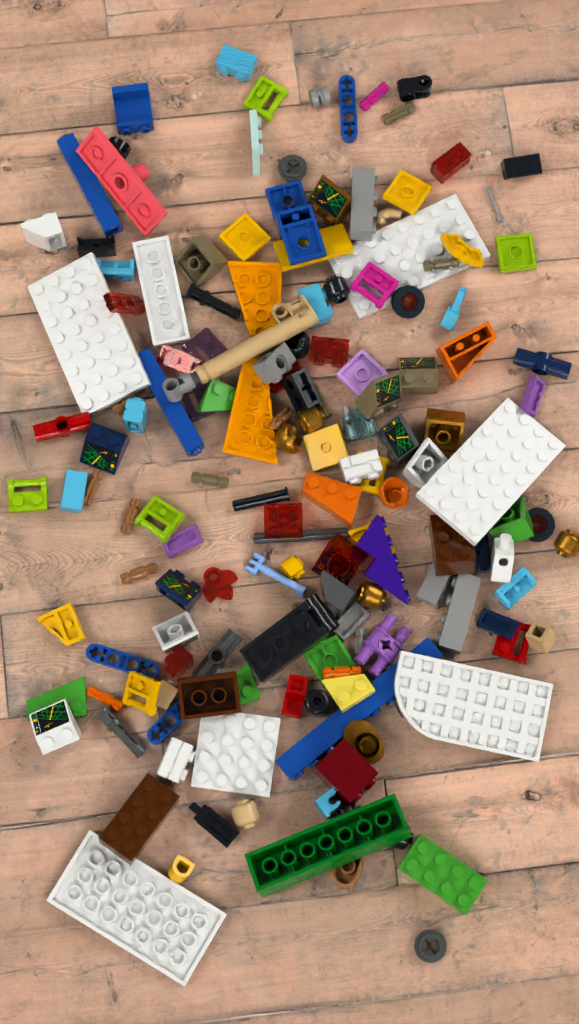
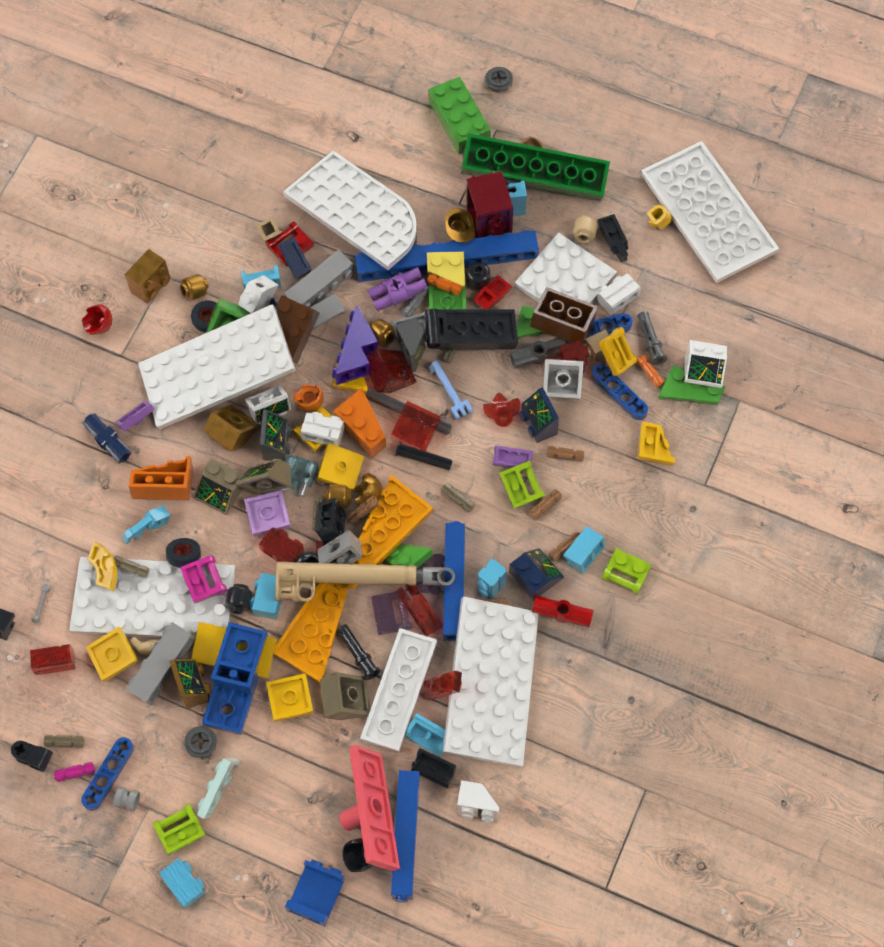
camera: 145 degrees left, 10 degrees down
(139, 819) = (673, 263): reddish brown brick -> none
(293, 567) = (431, 387): yellow plate -> none
(515, 253) = (56, 546): lime plate -> none

